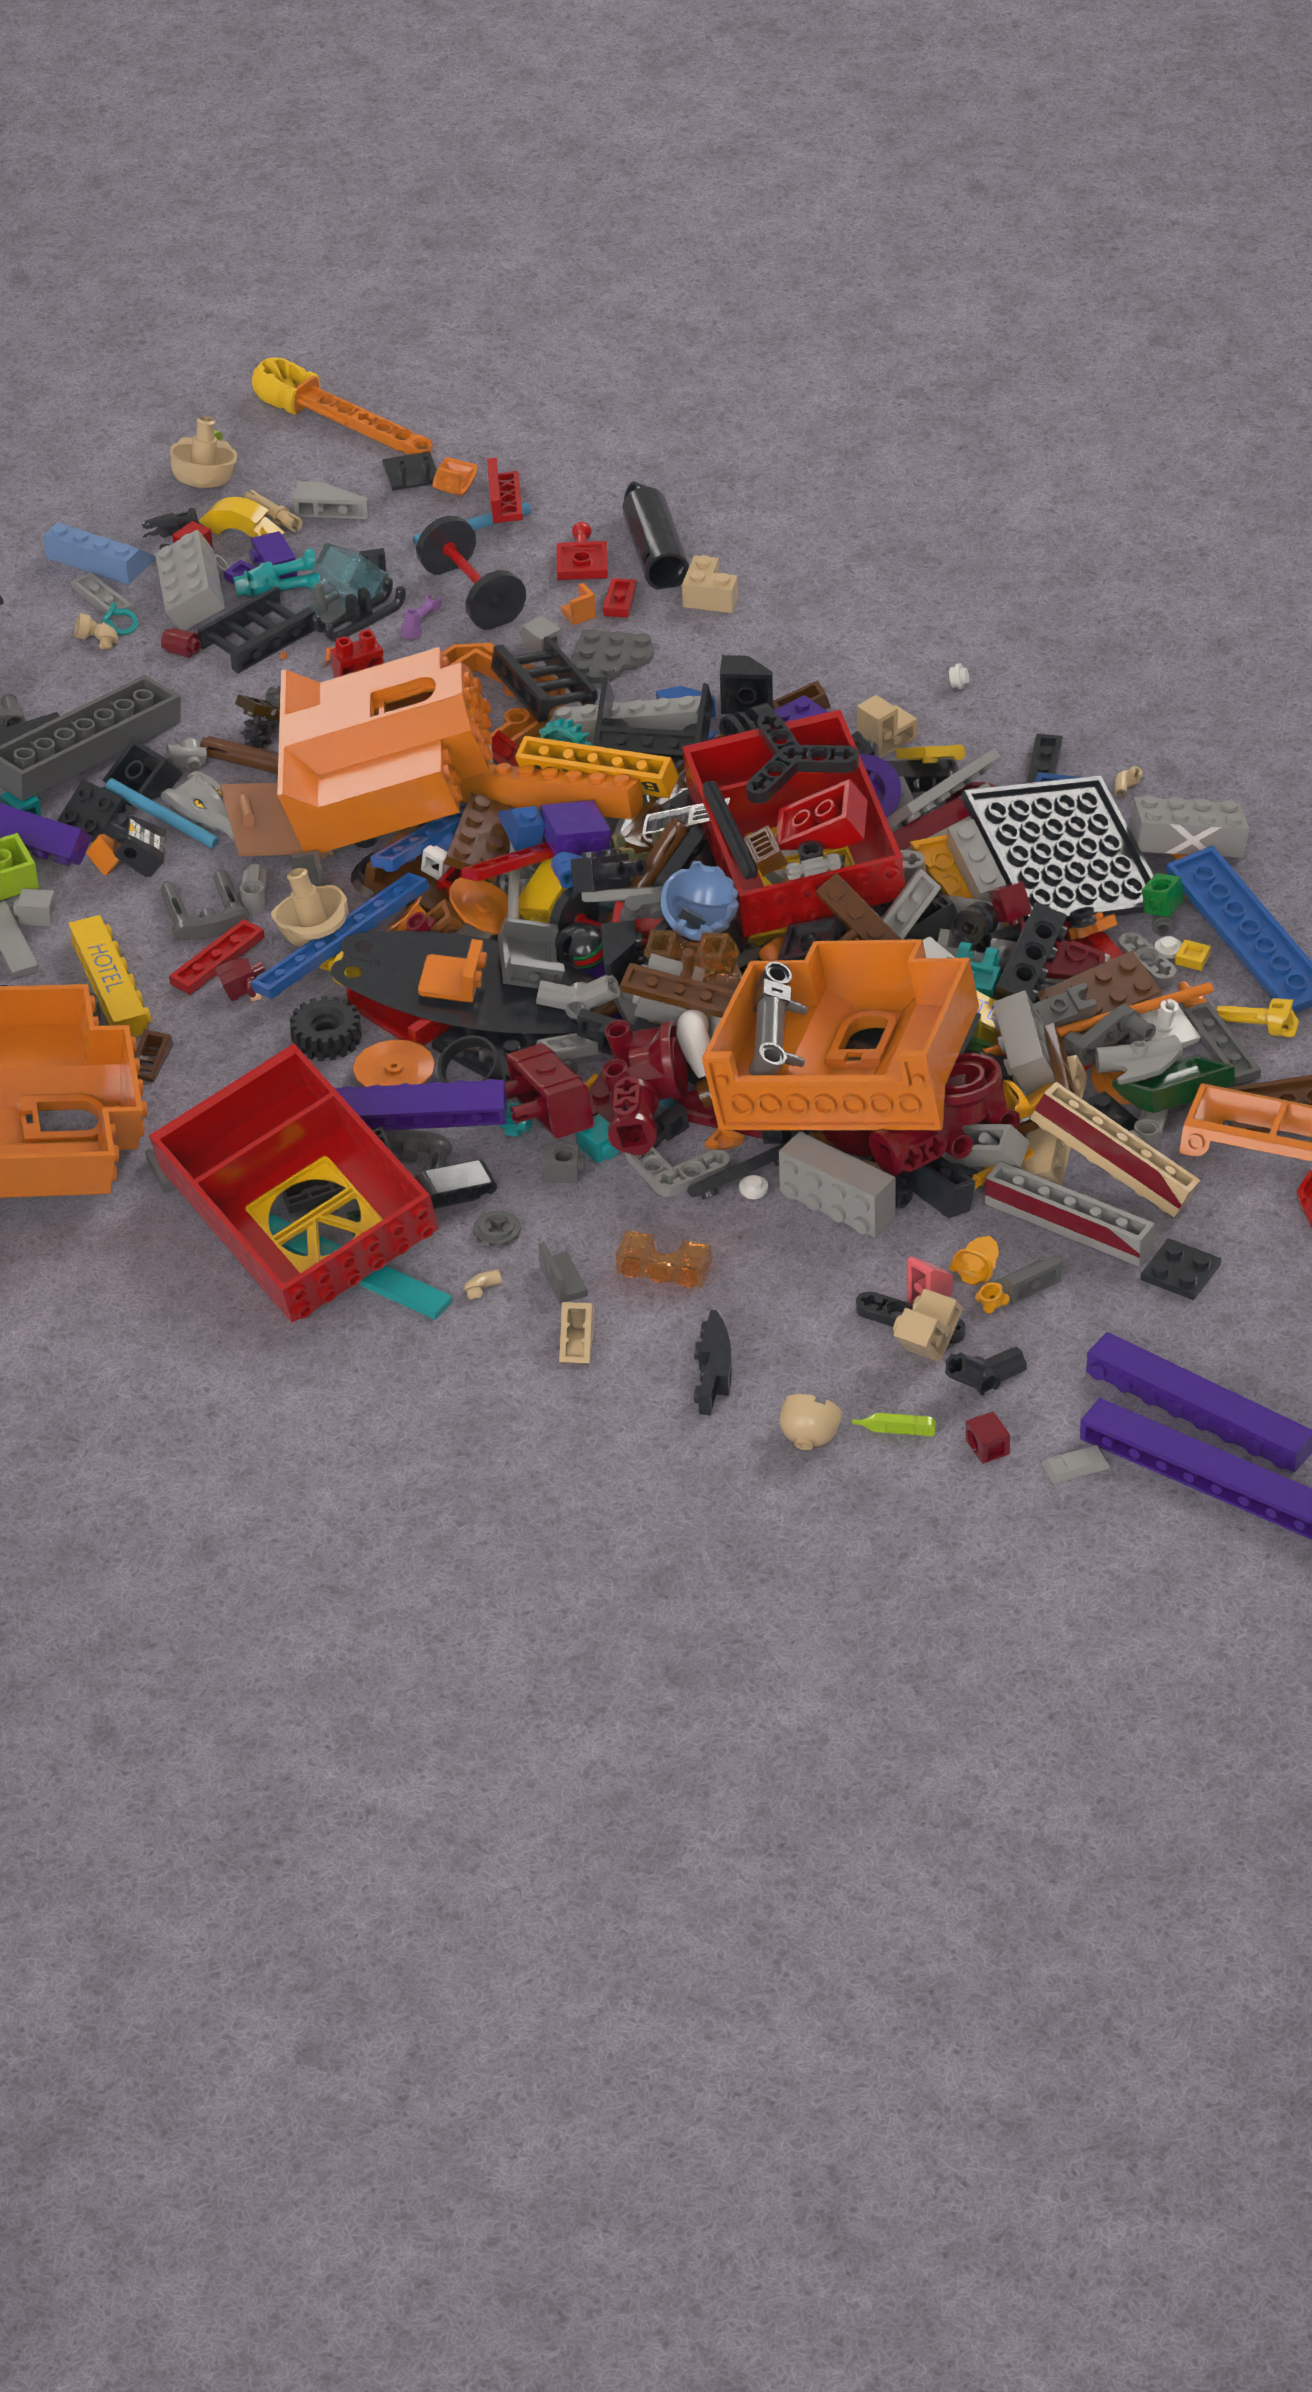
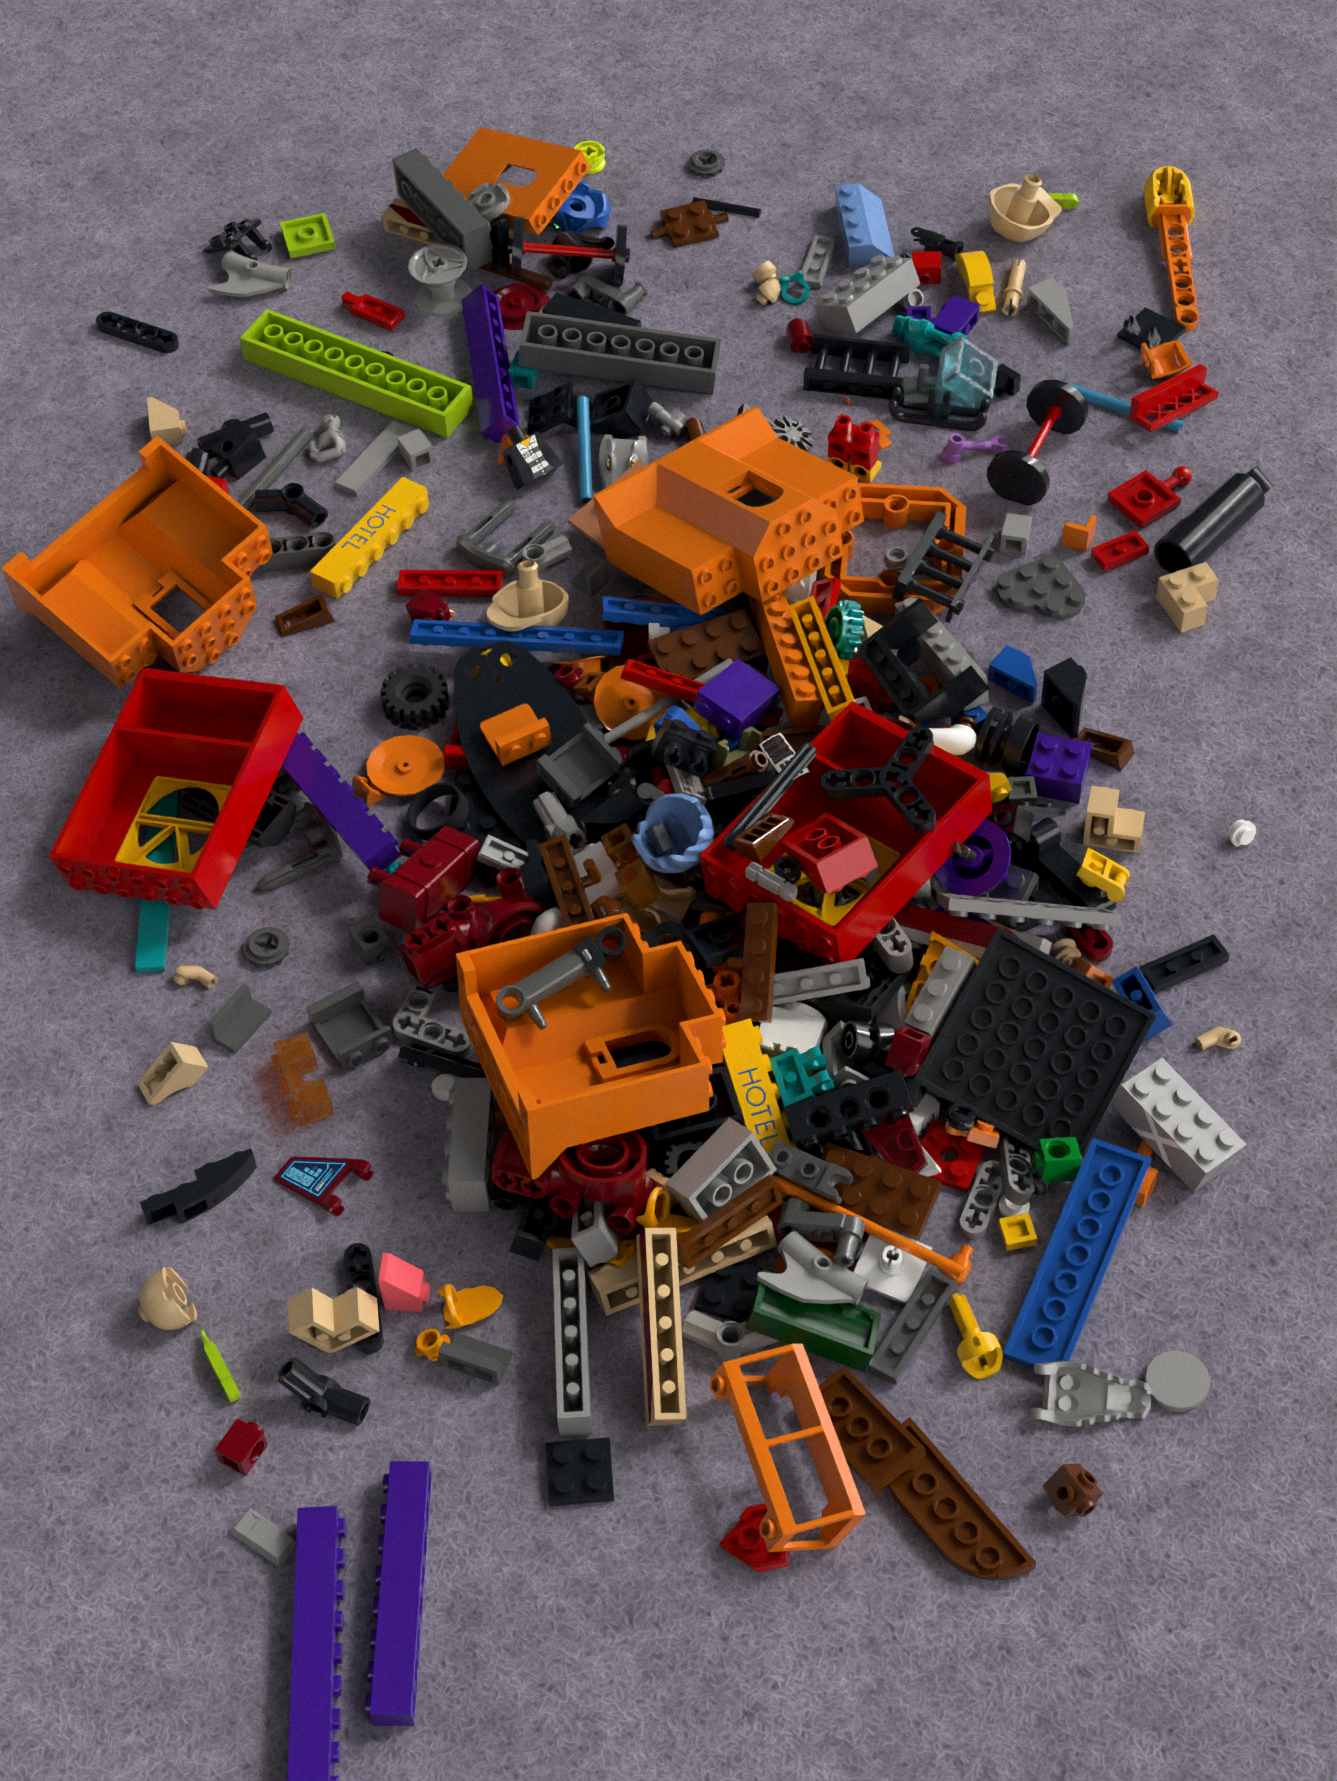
camera: 55 degrees right, 10 degrees up
(457, 1183) = (284, 887): beam -> none
(506, 698) = (896, 558): none -> light grey plate
(523, 826) = (720, 657): blue slope -> none
(638, 1213) = (349, 1026): none -> dark grey panel
(769, 1295) = (318, 1178): none -> flag
(1146, 926) = (1010, 1177): none -> dark grey beam

